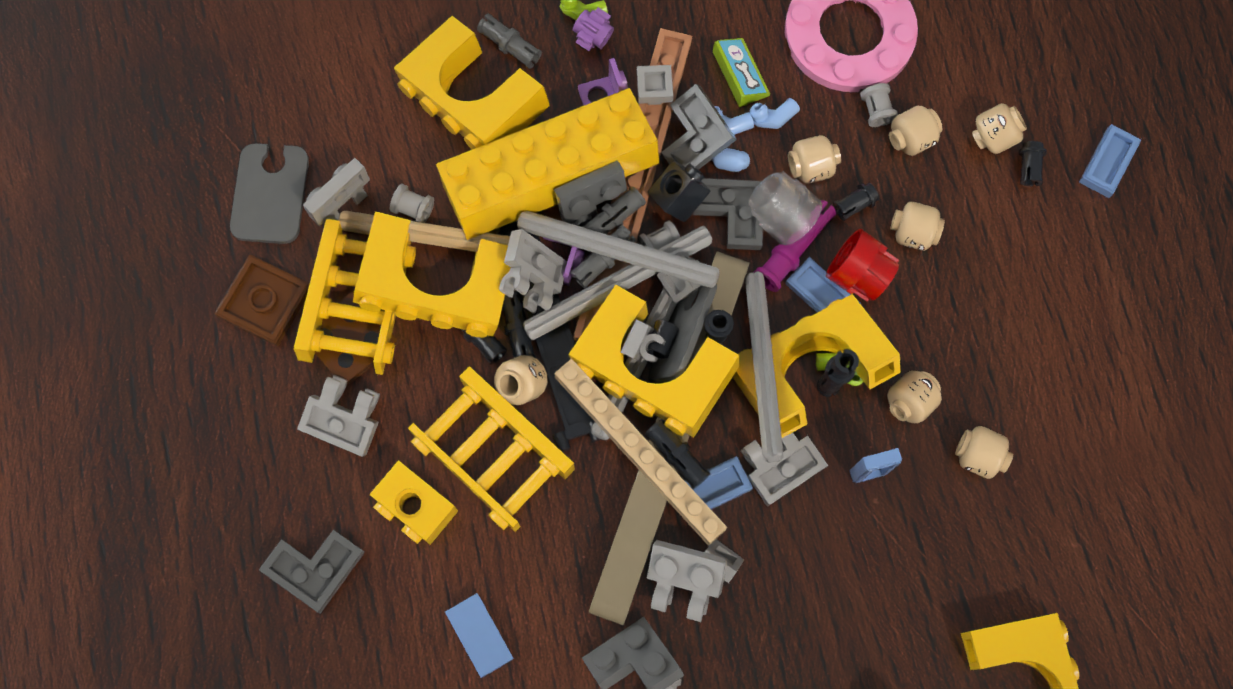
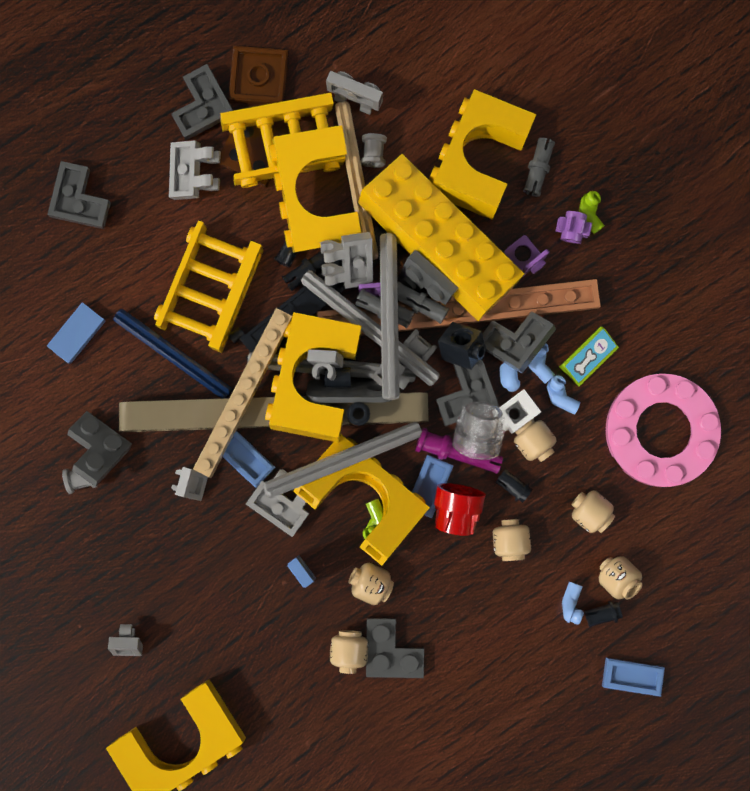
camera: 70 degrees right, 10 degrees up
(265, 203) = (336, 44): dark grey piece -> none
(271, 367) = (207, 106): none -> dark grey plate
(403, 484) = (149, 264): yellow brick -> none
(520, 379) = (267, 286): tan head -> none
(552, 526) = (172, 354): none -> dark blue axle
(654, 84) = (539, 292): light grey tile -> none
(677, 454) = (251, 422): black pin -> none
(686, 569) = (173, 462): light grey plate -> none
(775, 155) = (526, 408): none -> white brick
(837, 372) = (349, 517): black pin -> none
(878, 104) = (603, 475): light grey bush -> none
(1005, 413) = (385, 658): none -> dark grey plate
(1010, 194) = (569, 603): none -> light blue arm

